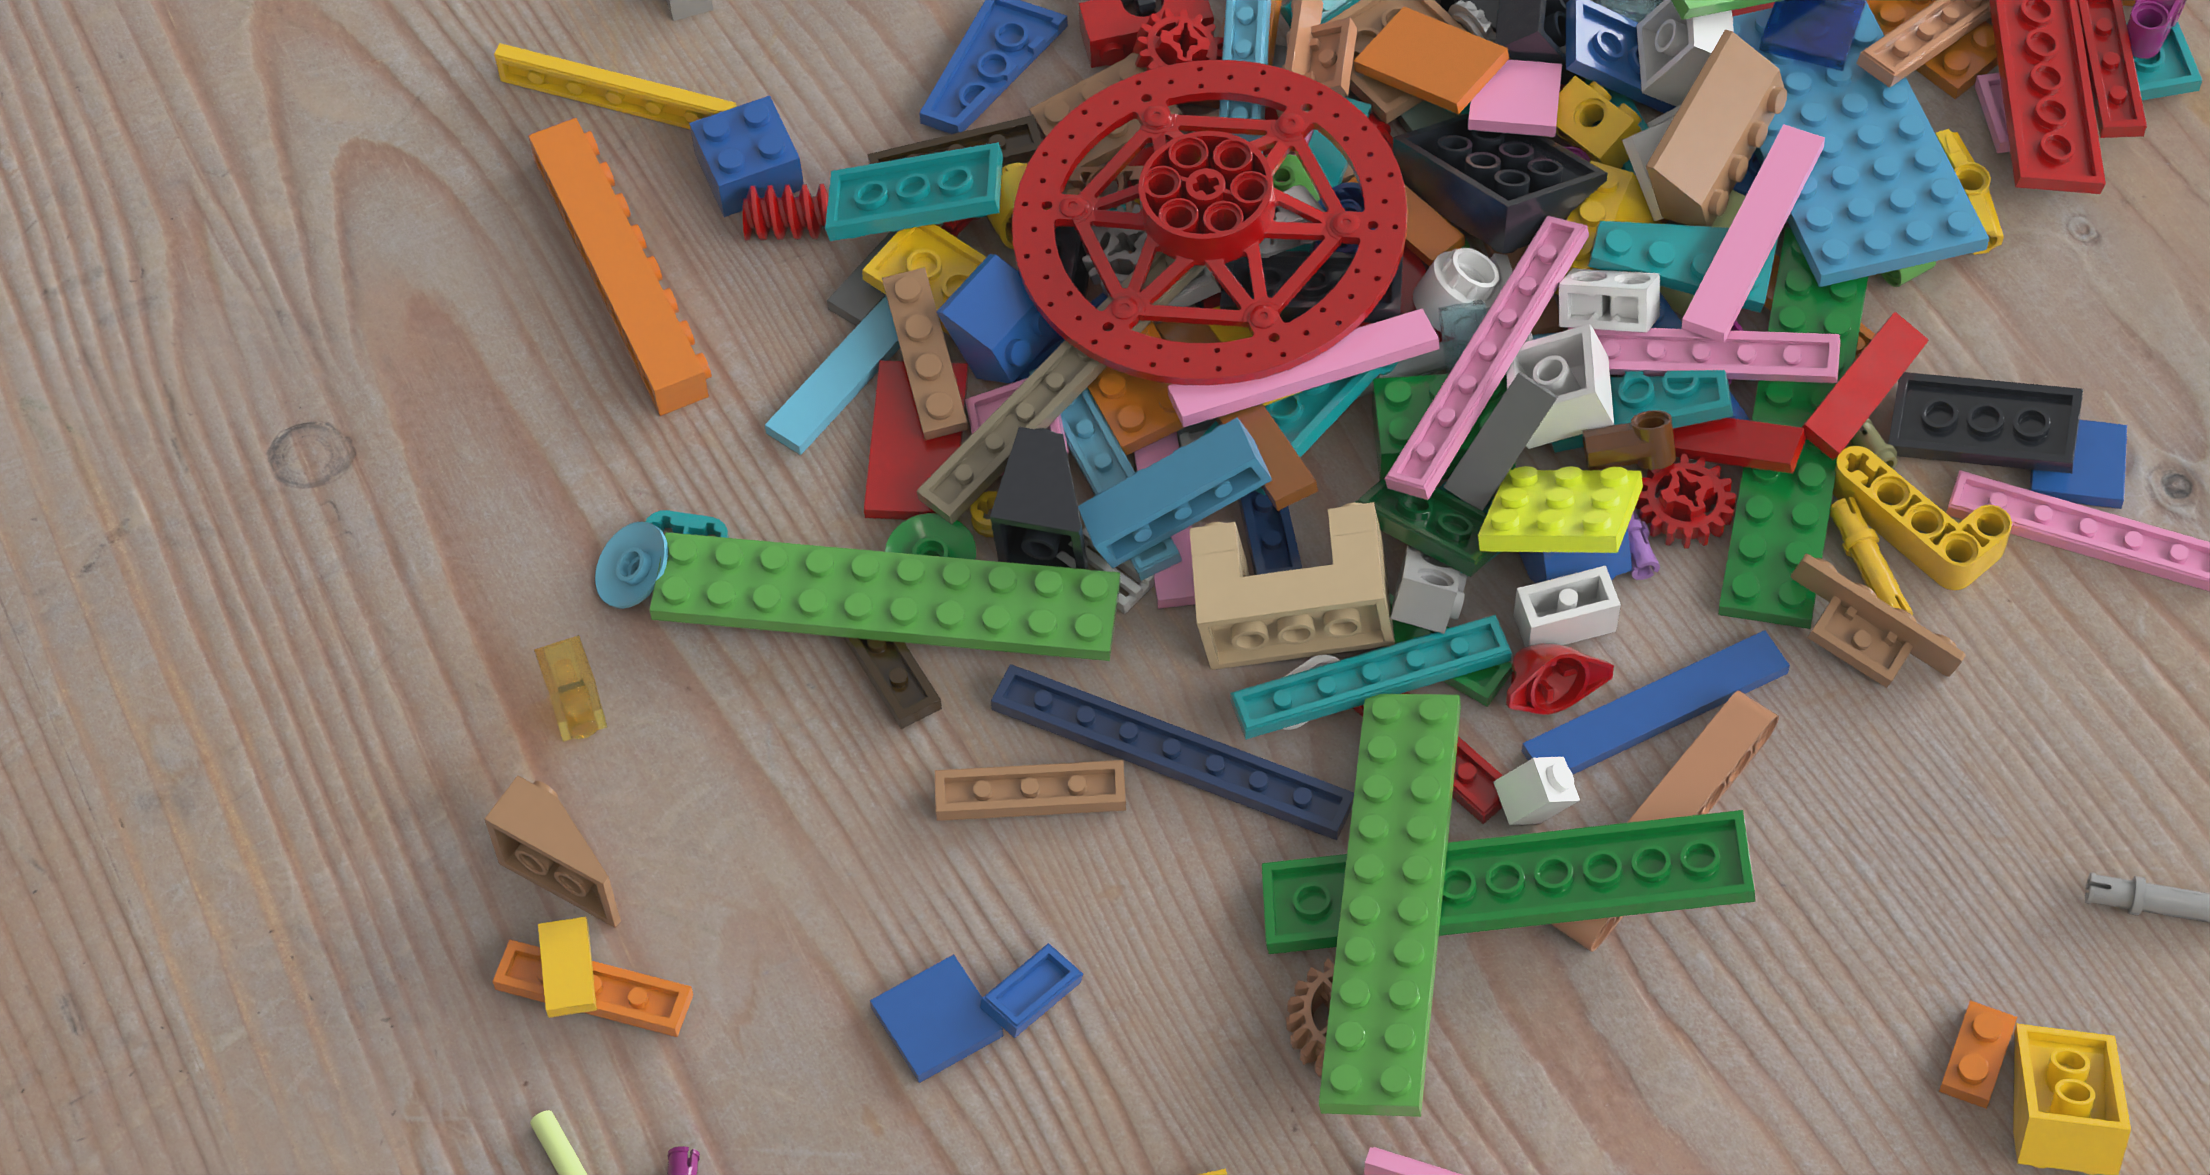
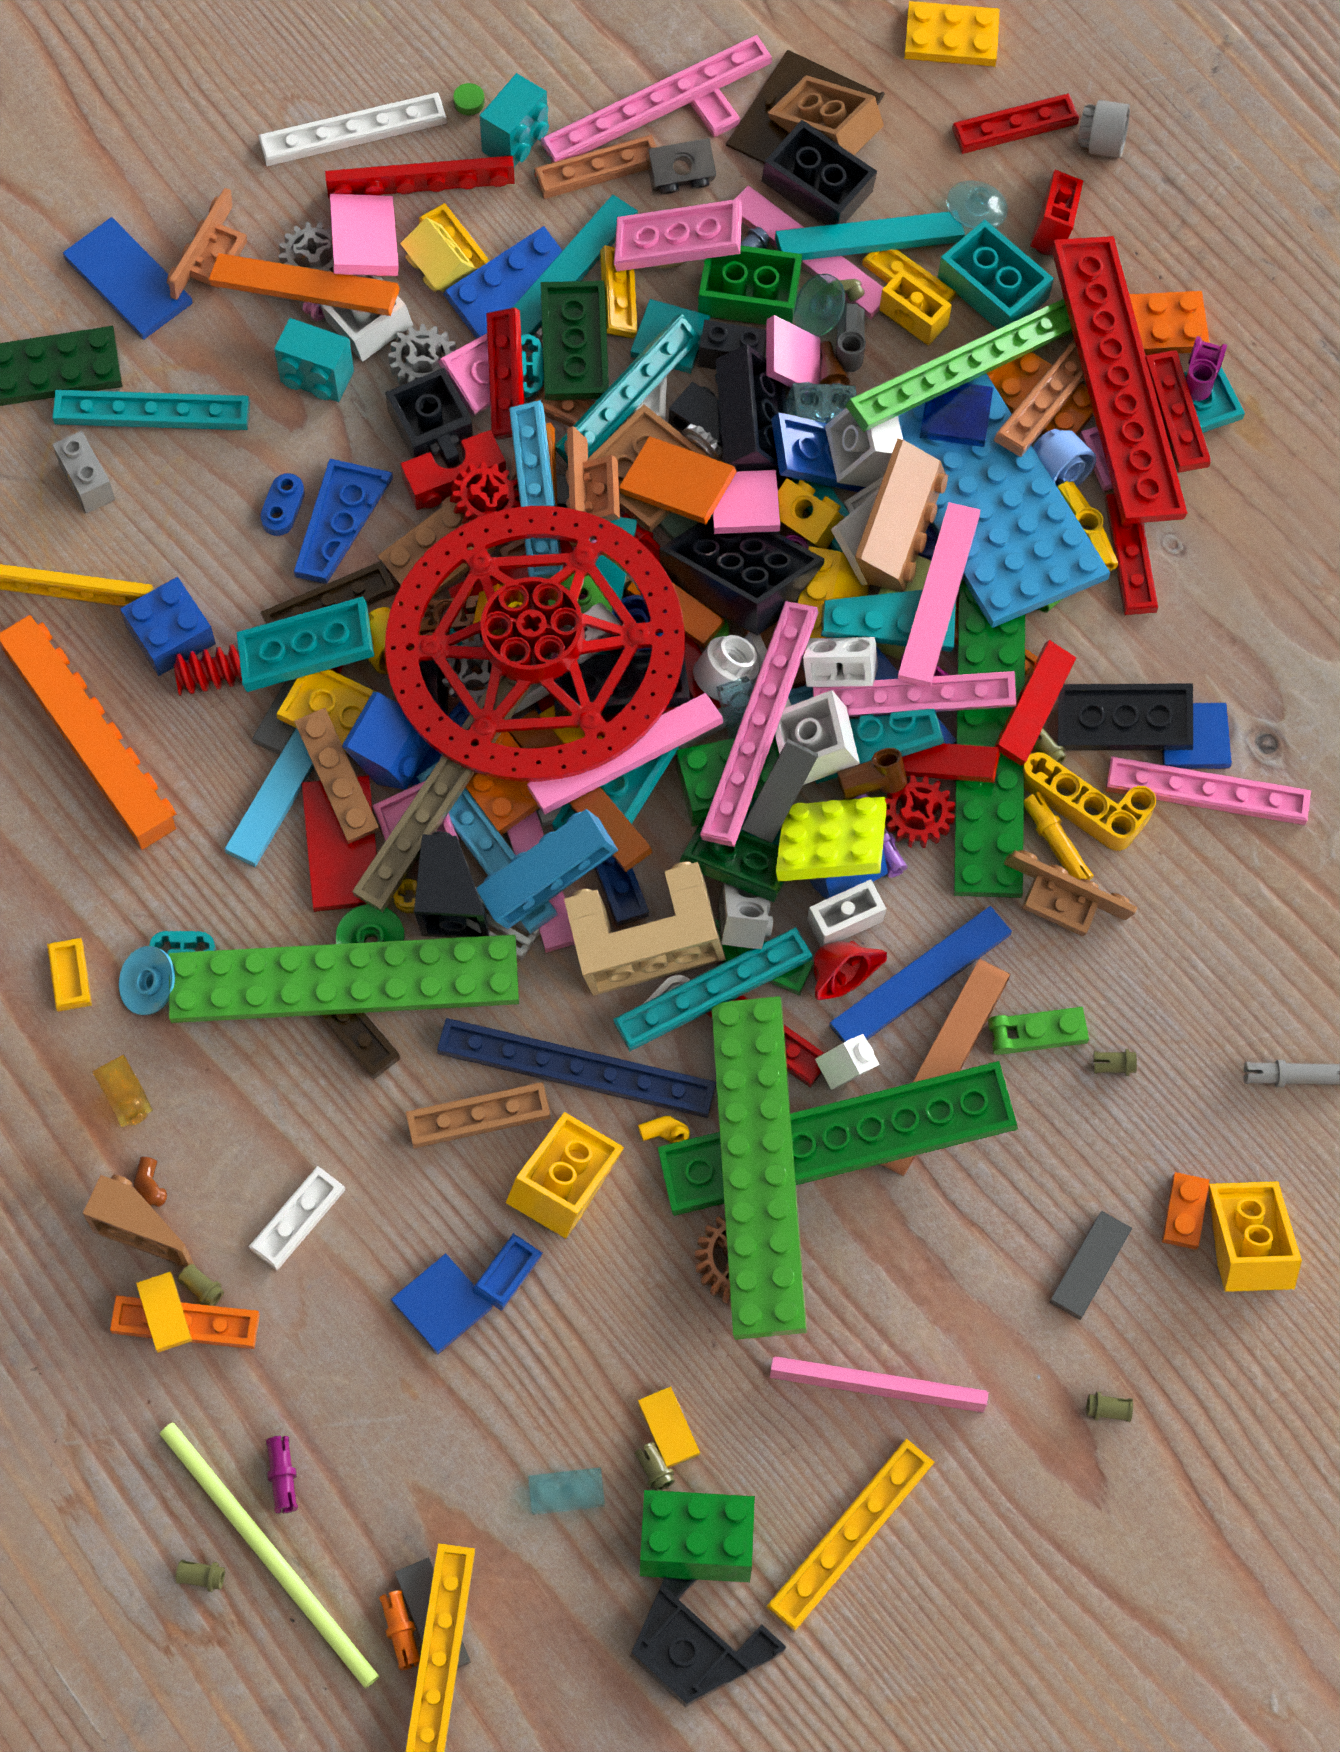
camera: 15 degrees left, 10 degrees up
(535, 548) = (69, 974): none -> yellow tile
(579, 809) = (145, 1183): none -> dark orange arm
(623, 945) = (200, 1285): none -> olive pin
(766, 884) = (297, 1218): none -> white tile
(927, 32) = (284, 502): none -> blue plate
(1128, 880) = (564, 1175): none -> yellow slope
(1276, 842) = (665, 1127): none -> yellow arm
(1807, 795) = (1039, 1030): none -> bright green plate
(1833, 1104) = (1090, 1265): none -> dark grey tile
(1907, 849) = (1118, 1062): none -> olive pin
(1952, 100) = (1065, 456): none -> light blue piece
(2024, 242) = (1134, 562): none -> red tile

